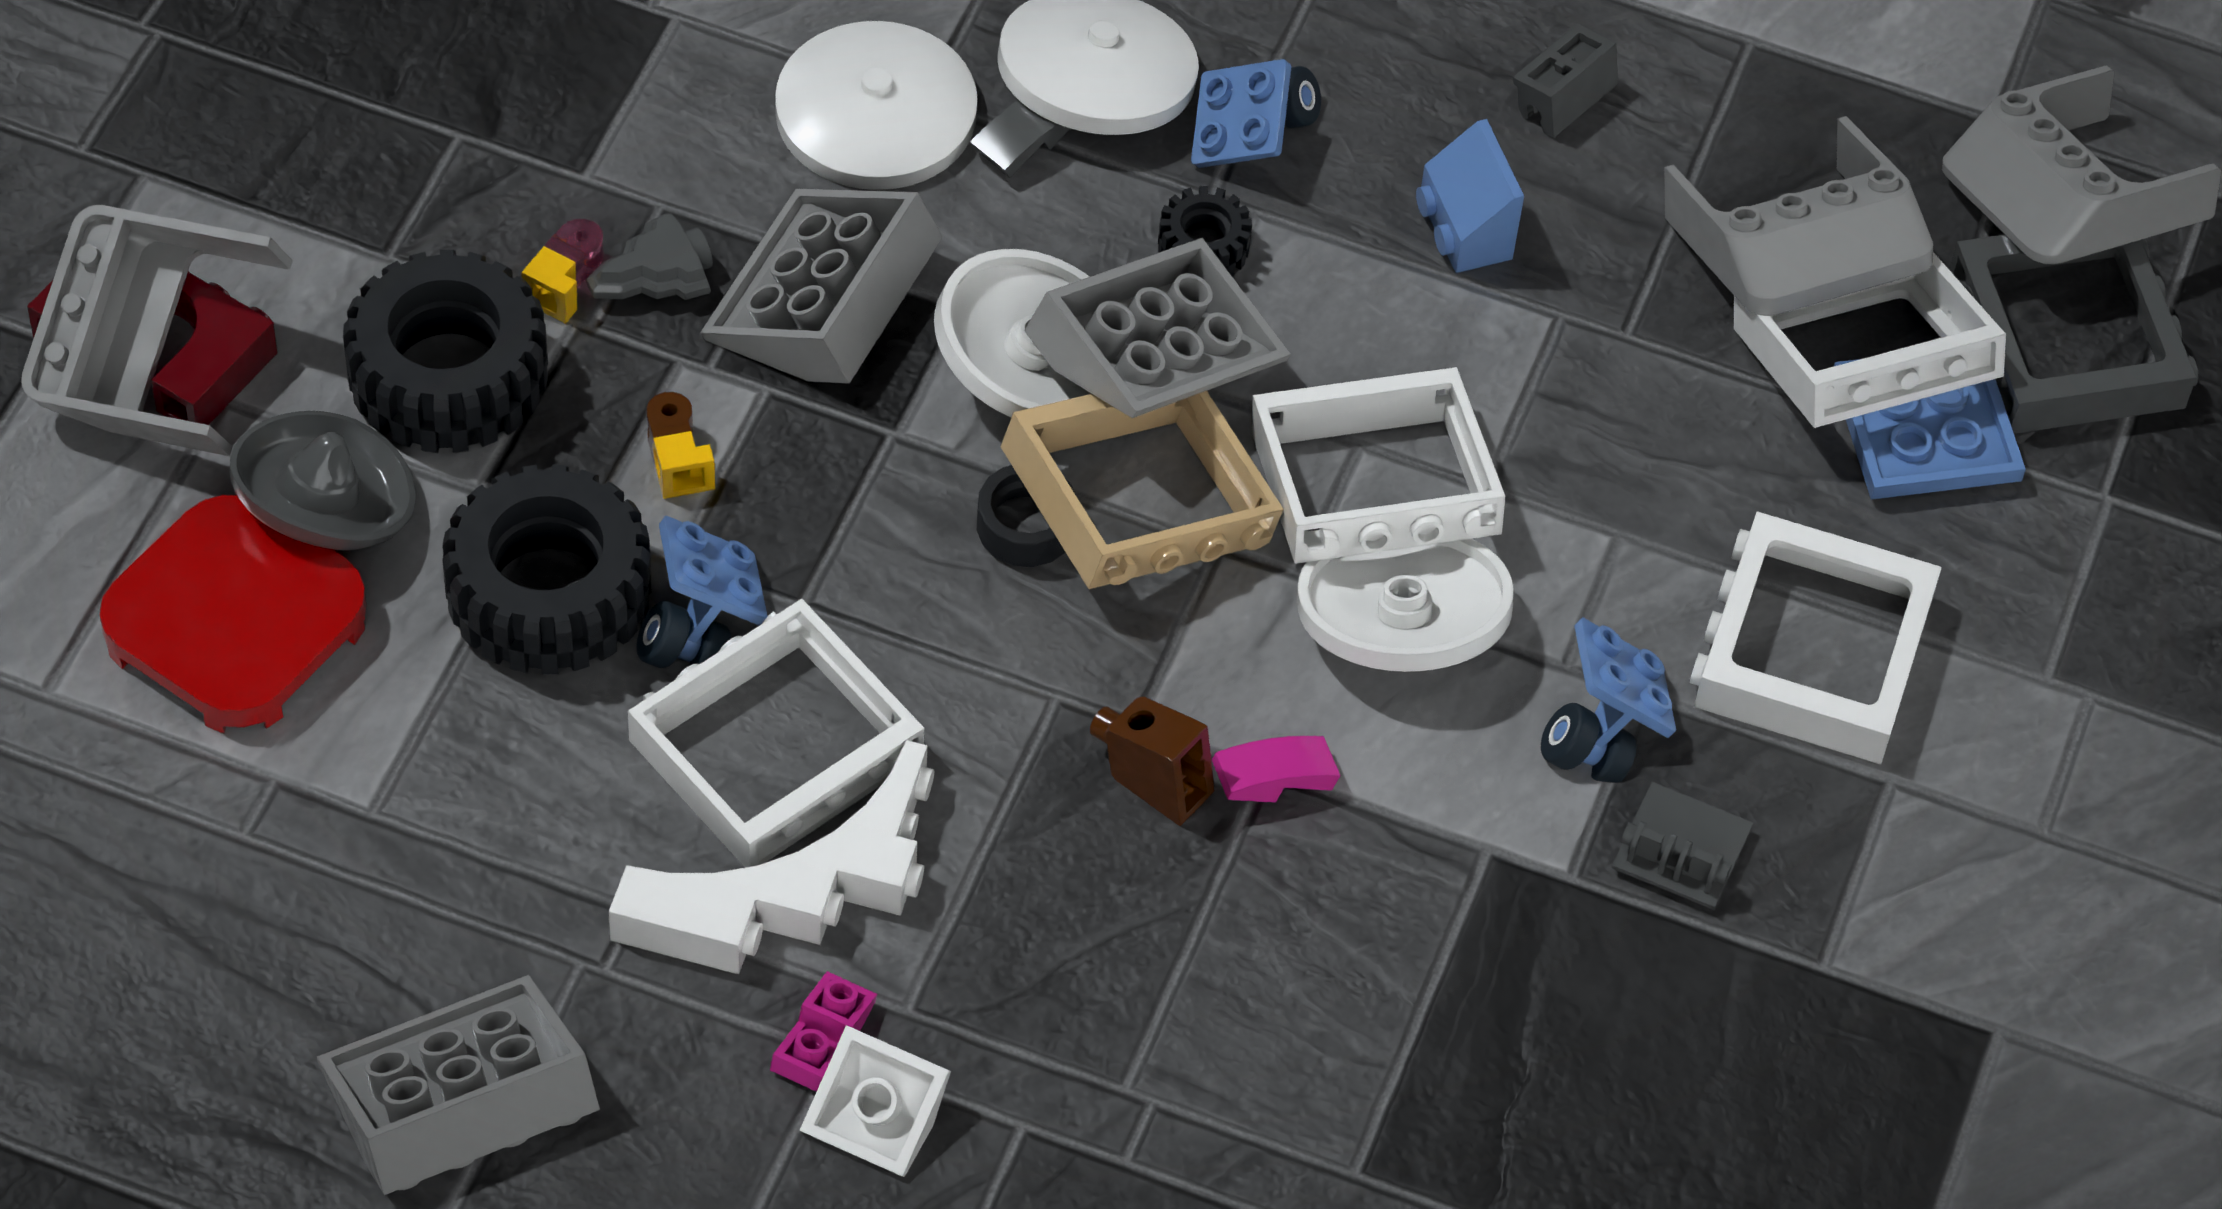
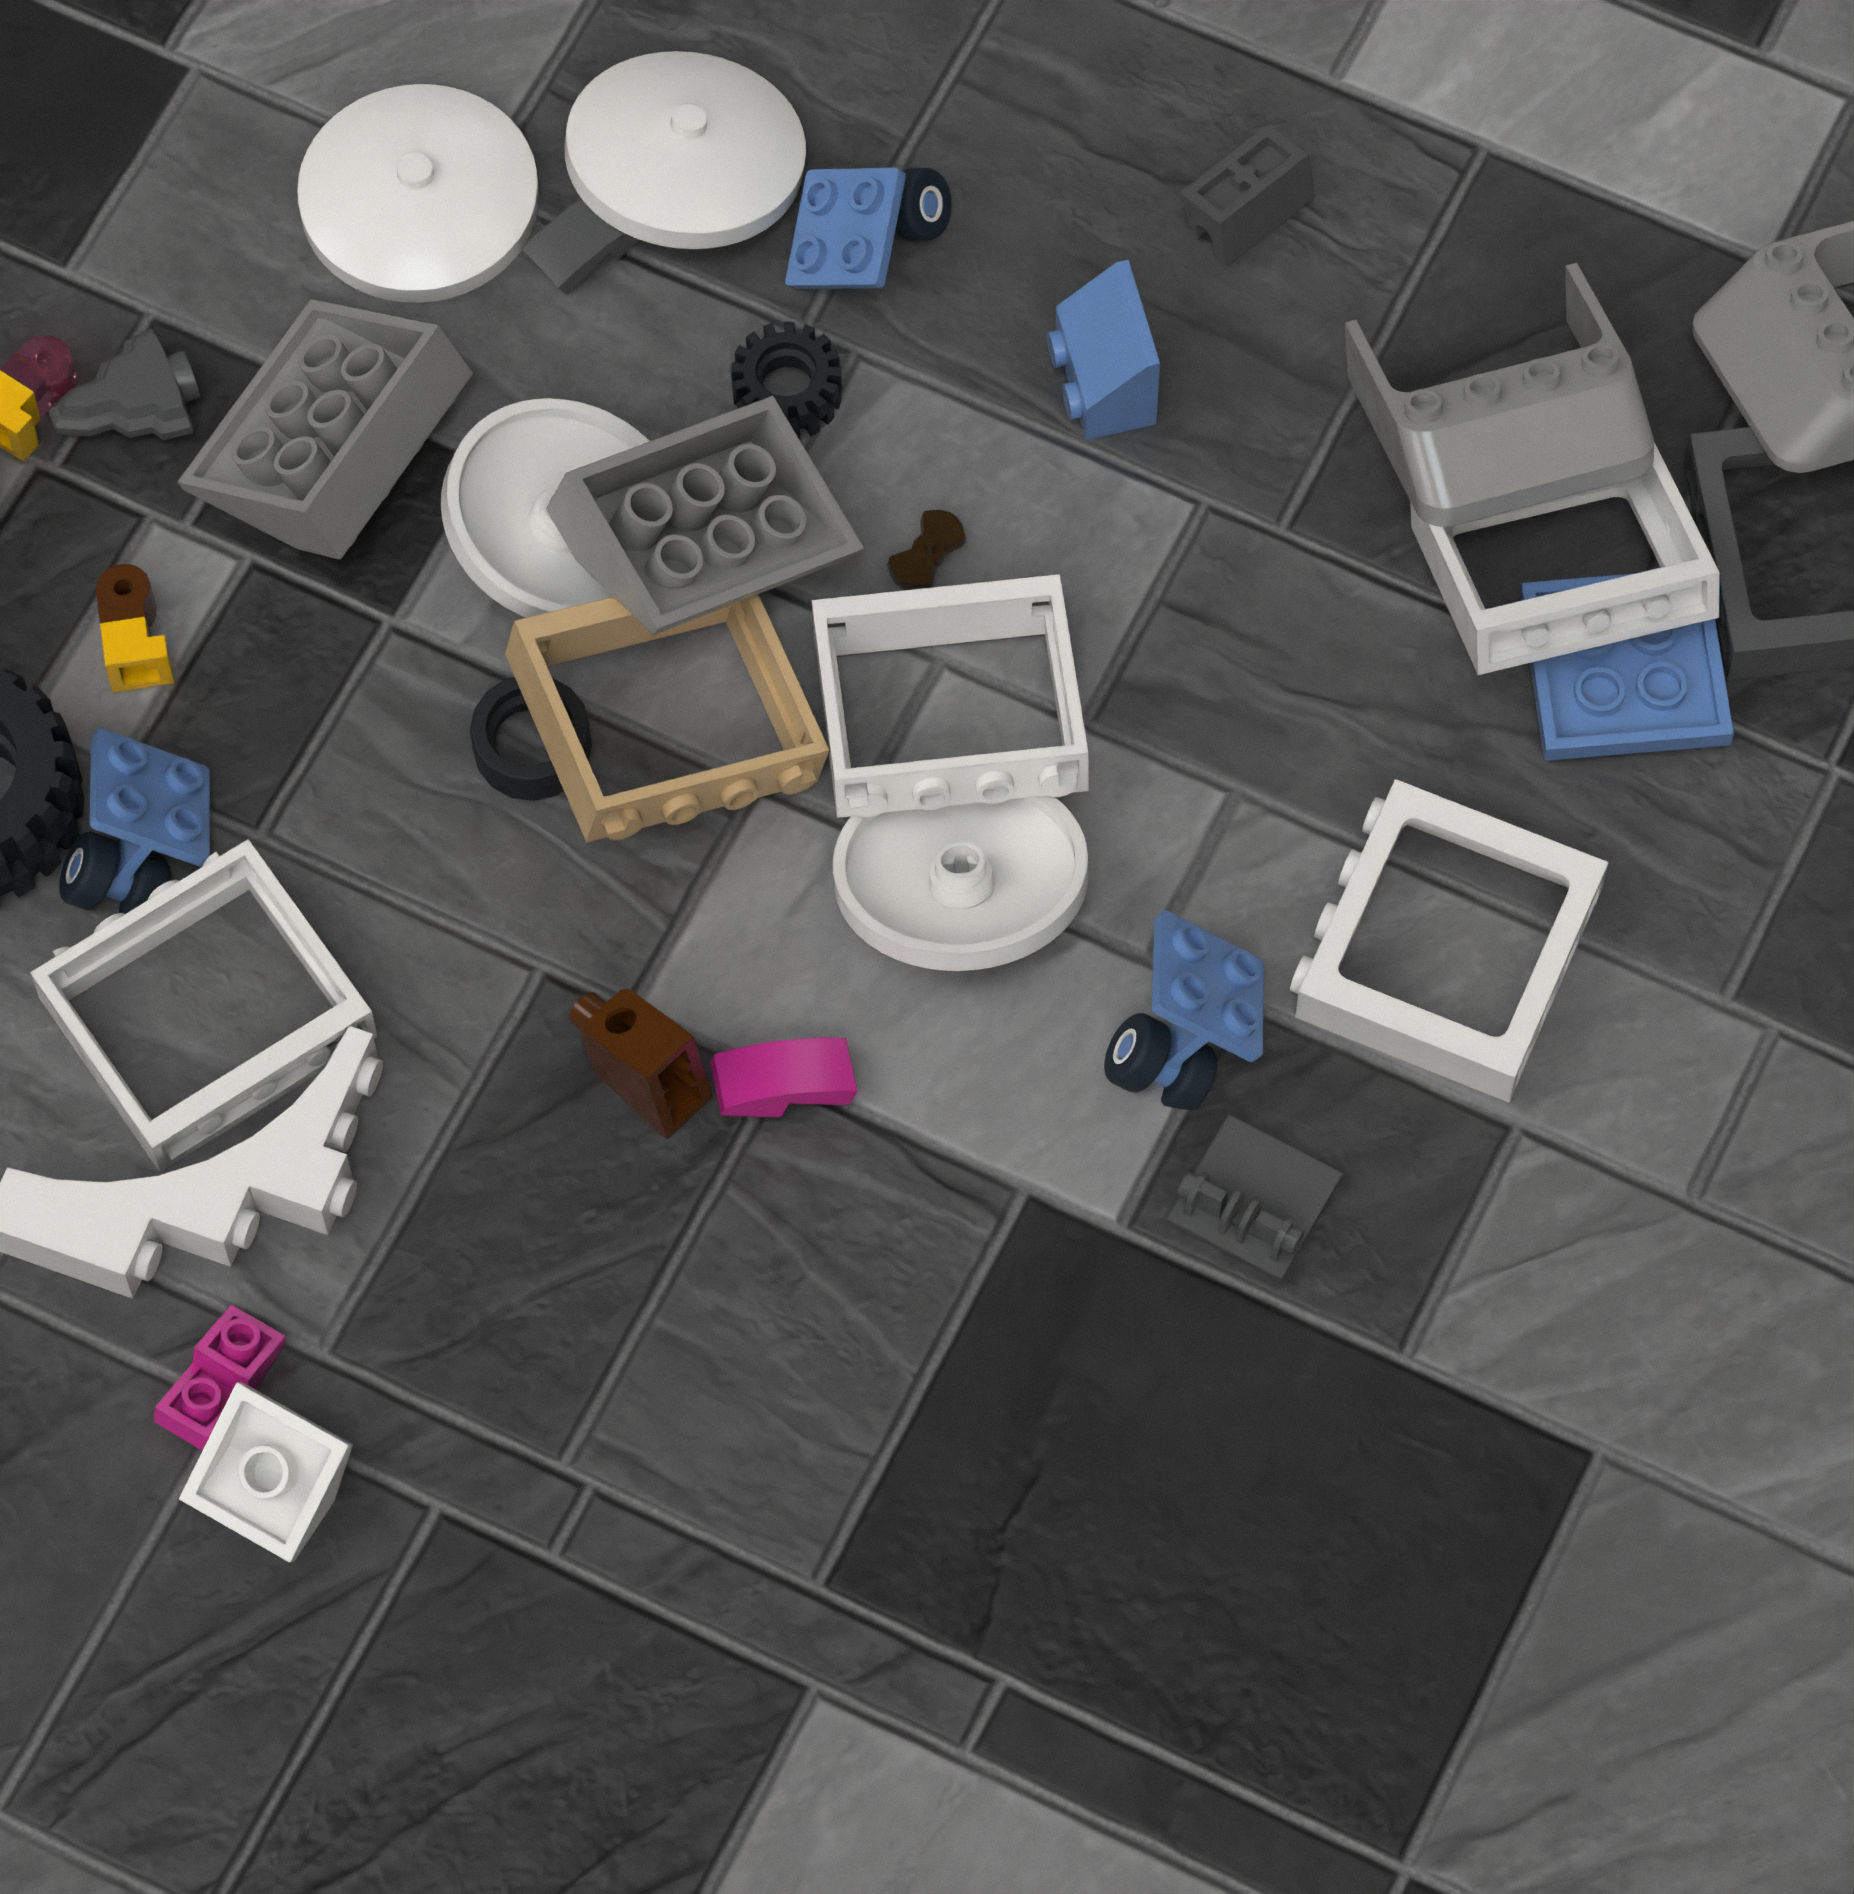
camera: 10 degrees right, 10 degrees up
(1346, 349) = (939, 536): none -> dark brown piece

